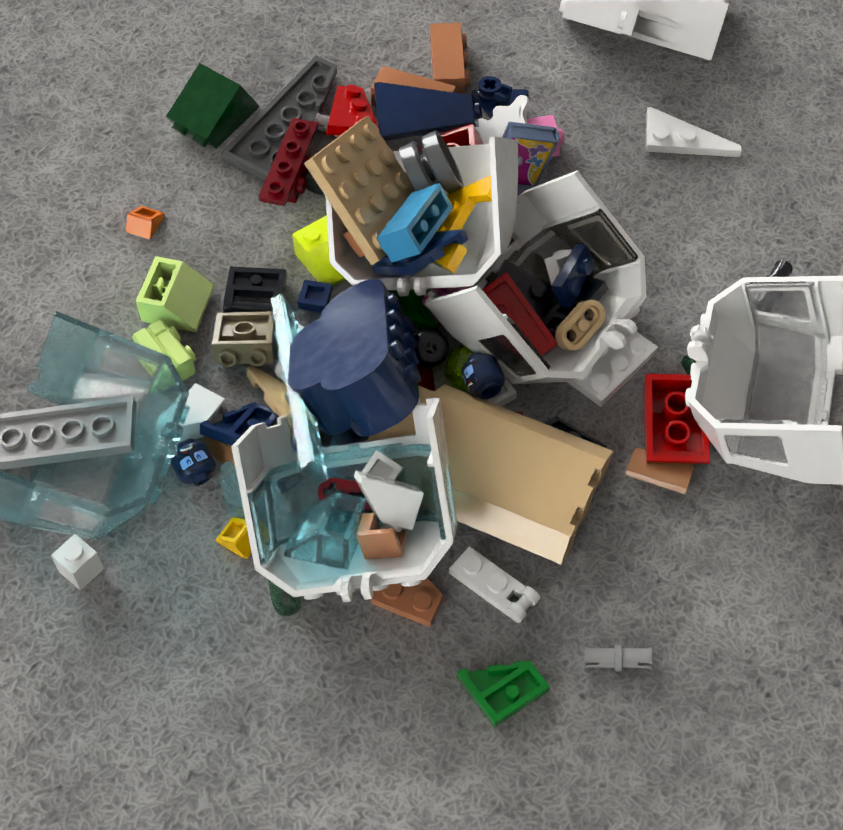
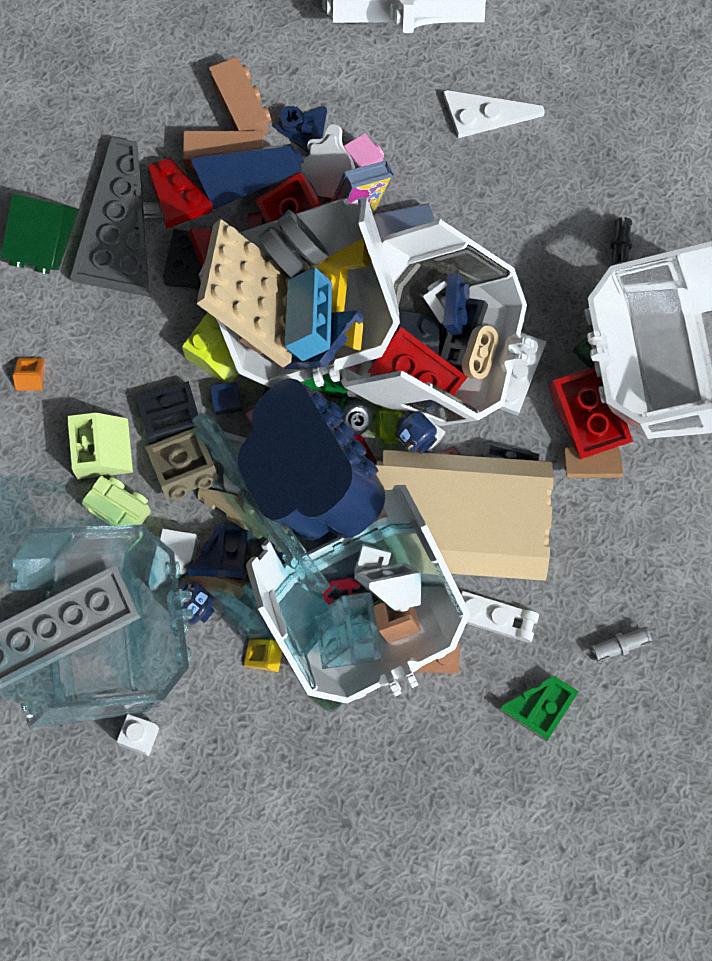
camera: 25 degrees left, 15 degrees up
(288, 169) = (144, 269): dark red bracket -> none

